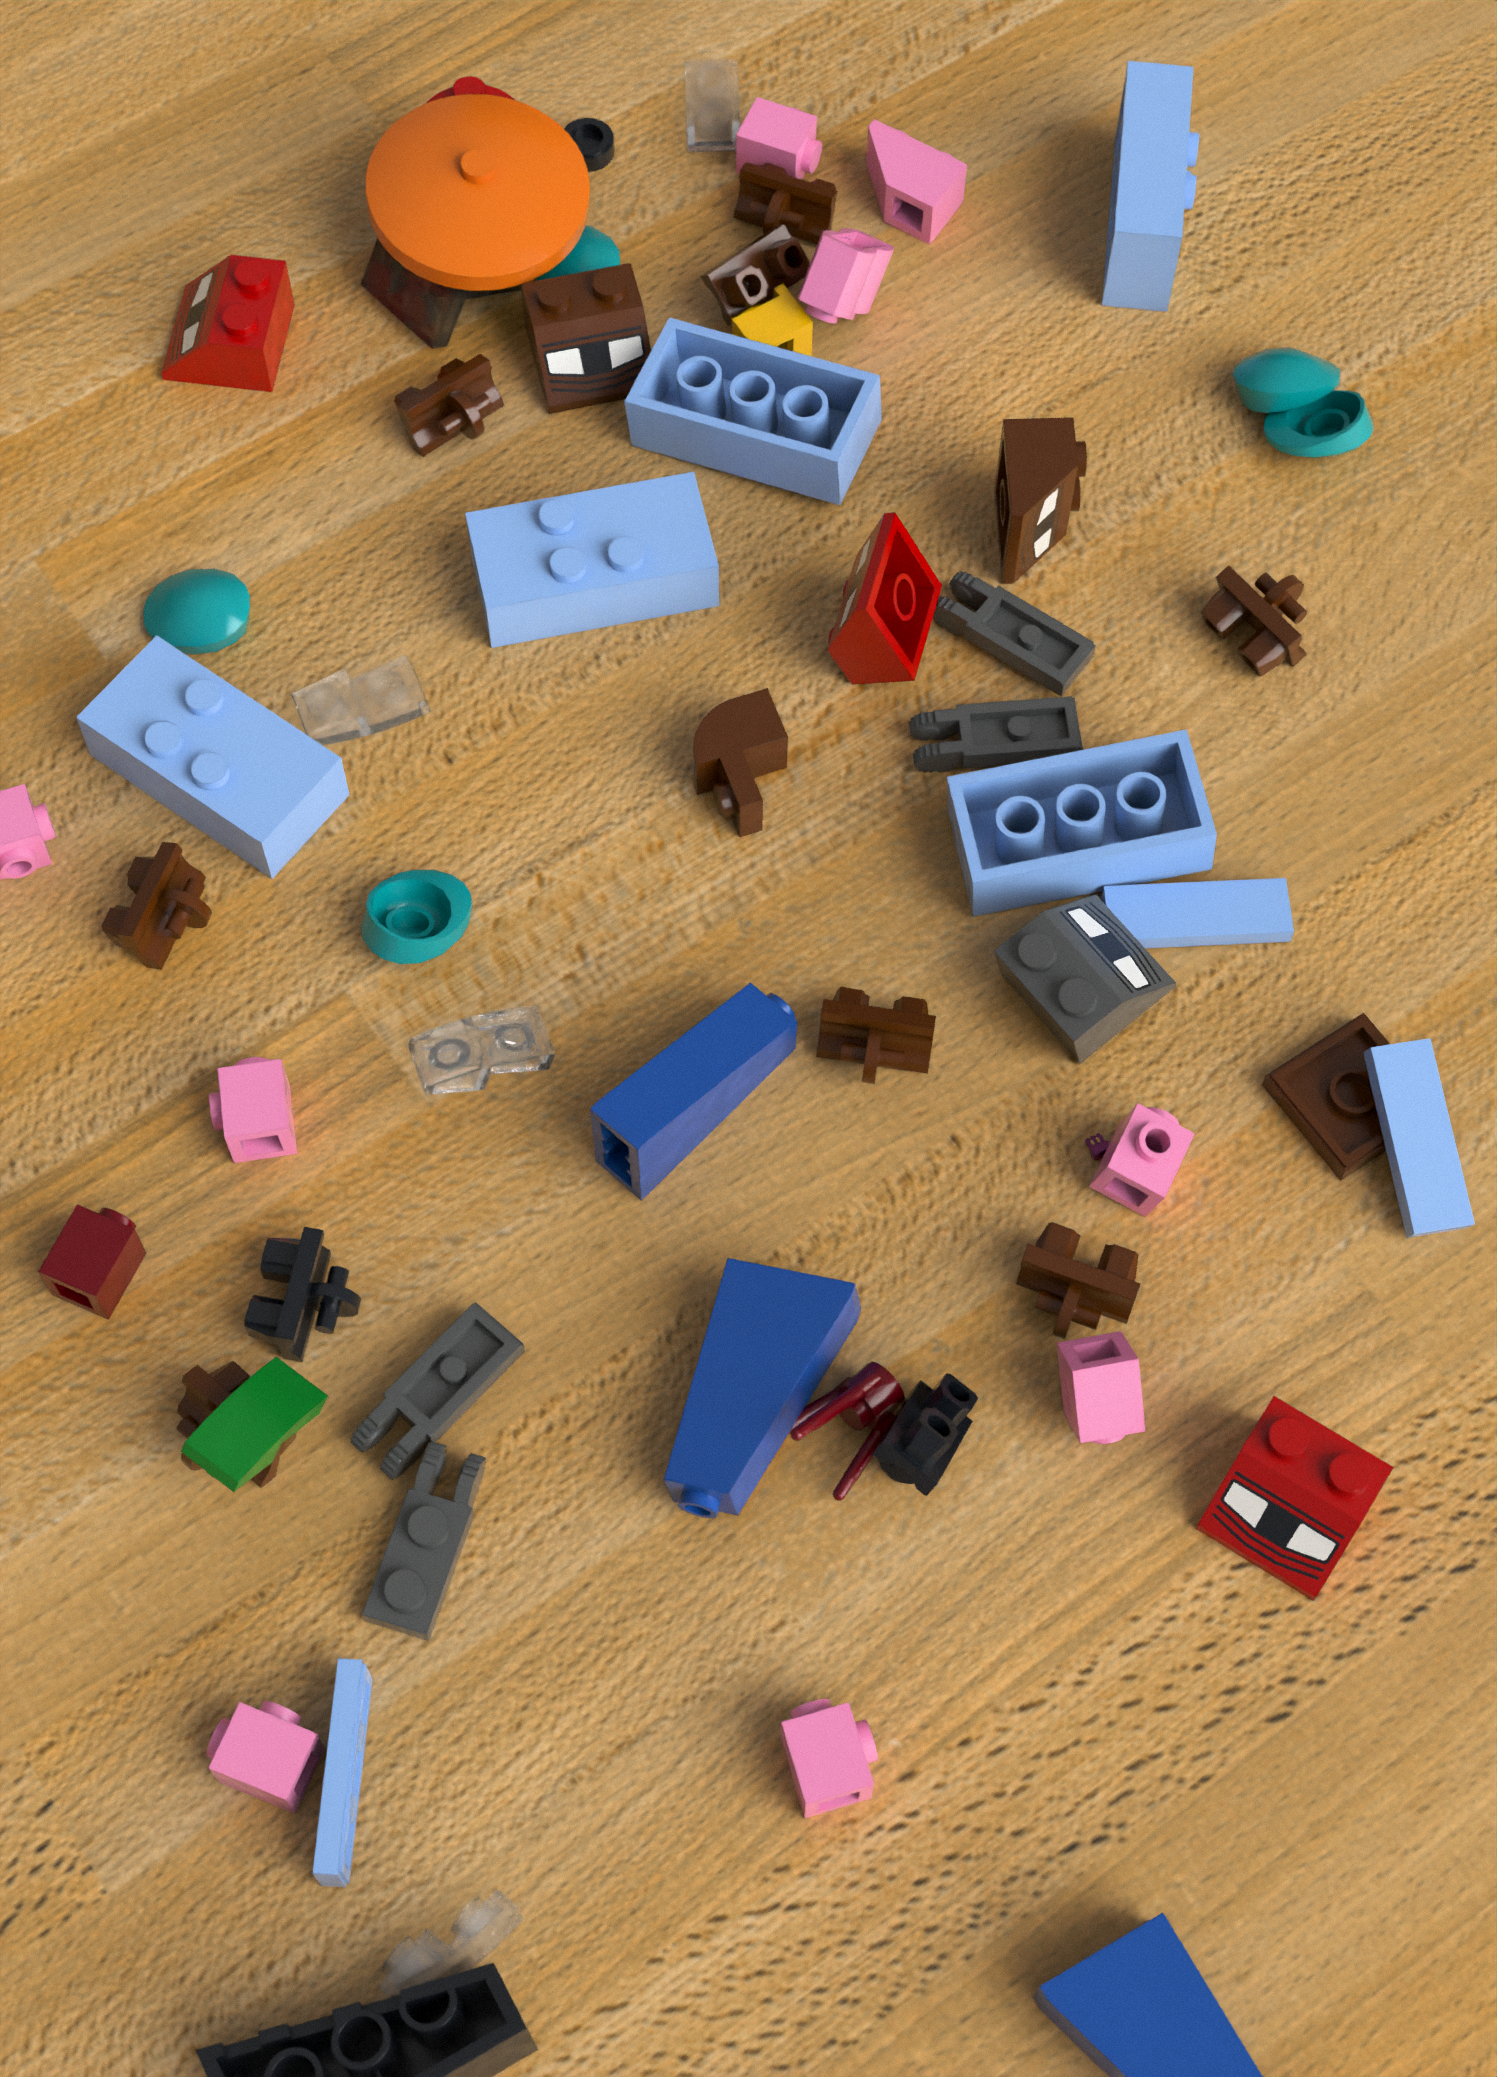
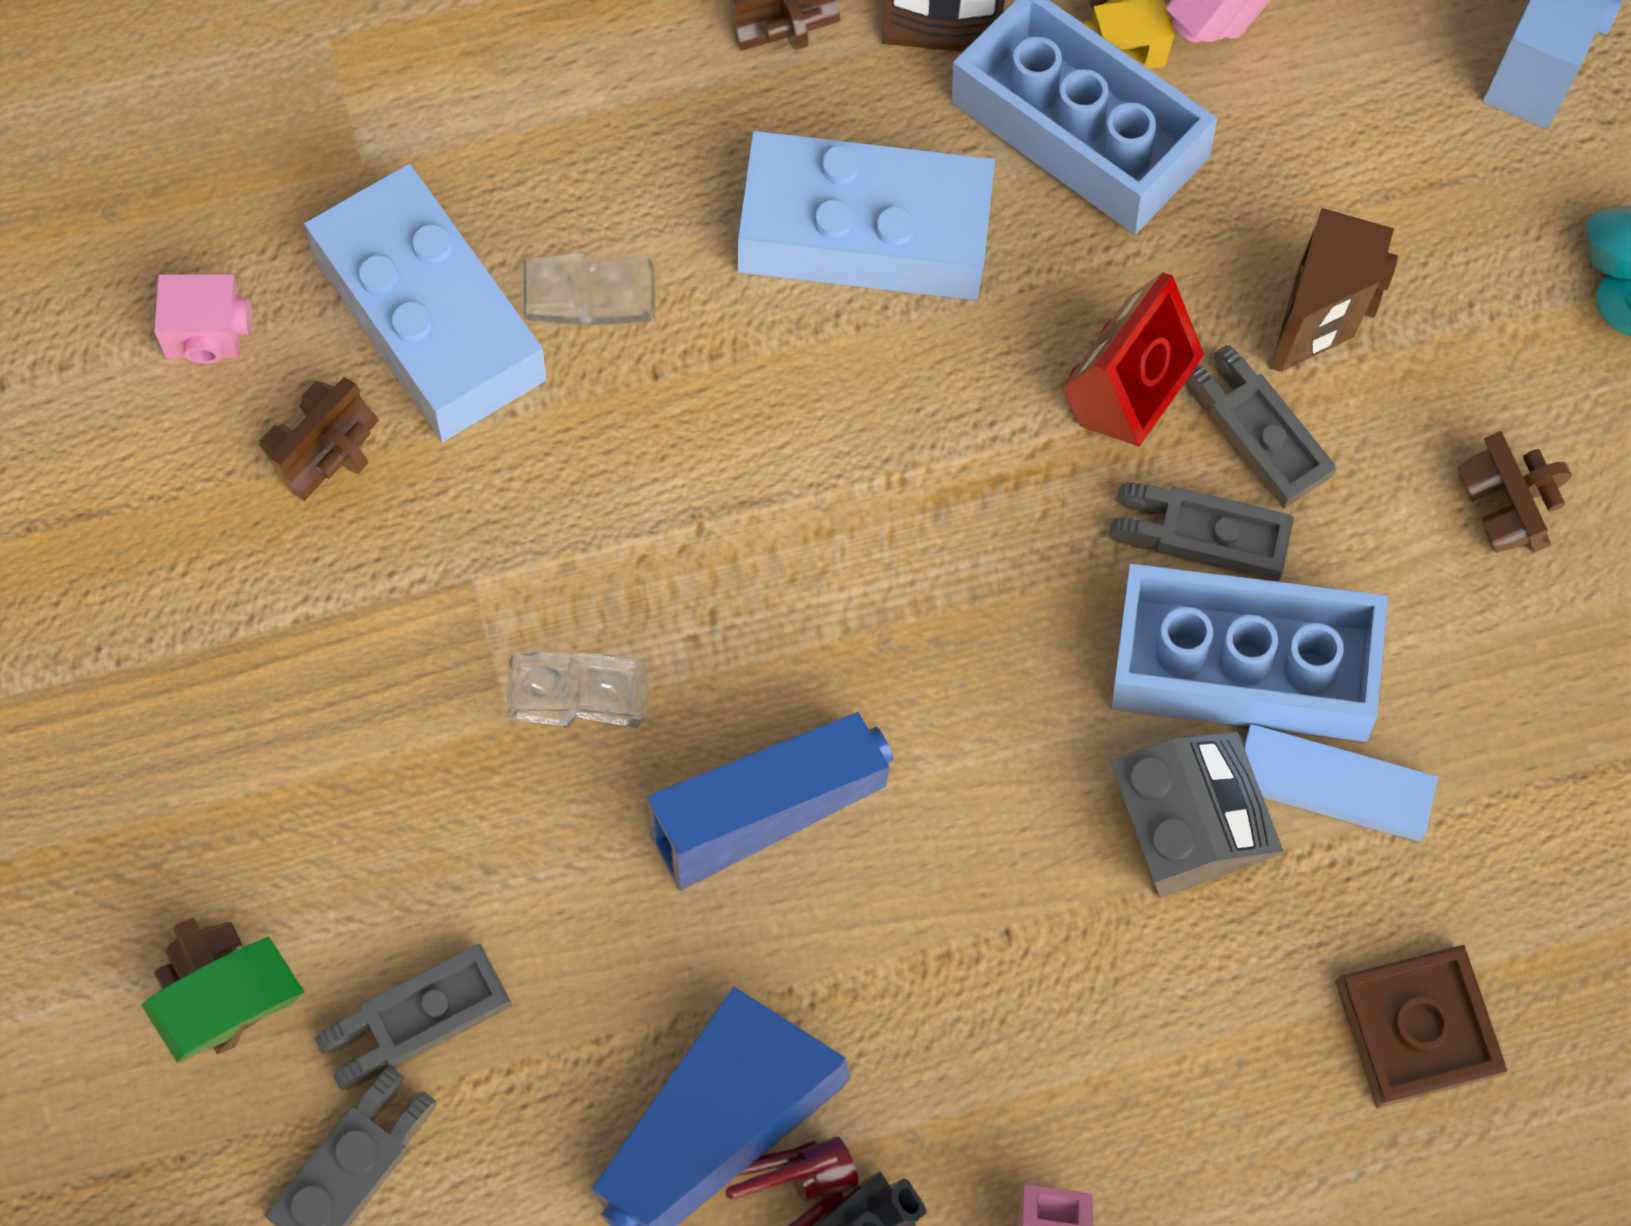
camera: 15 degrees right, 5 degrees up
(93, 1260) = (137, 775): dark red brick -> none
(198, 610) = (465, 144): teal hat -> none
(254, 1109) = (340, 675): bright pink brick -> none
(304, 1267) = (331, 853): black hips -> none
(416, 916) = (563, 529): teal hat -> none
(732, 748) = (934, 456): reddish brown brick -> none
(876, 1035) = (964, 805): reddish brown hips -> none
(1076, 1289) = (1096, 1143): reddish brown hips -> none
(1097, 1146) = (1146, 990): magenta piece -> none
(1142, 1159) = (1182, 1021): bright pink brick -> none
(1418, 1138) = (1468, 1096): light blue tile -> none

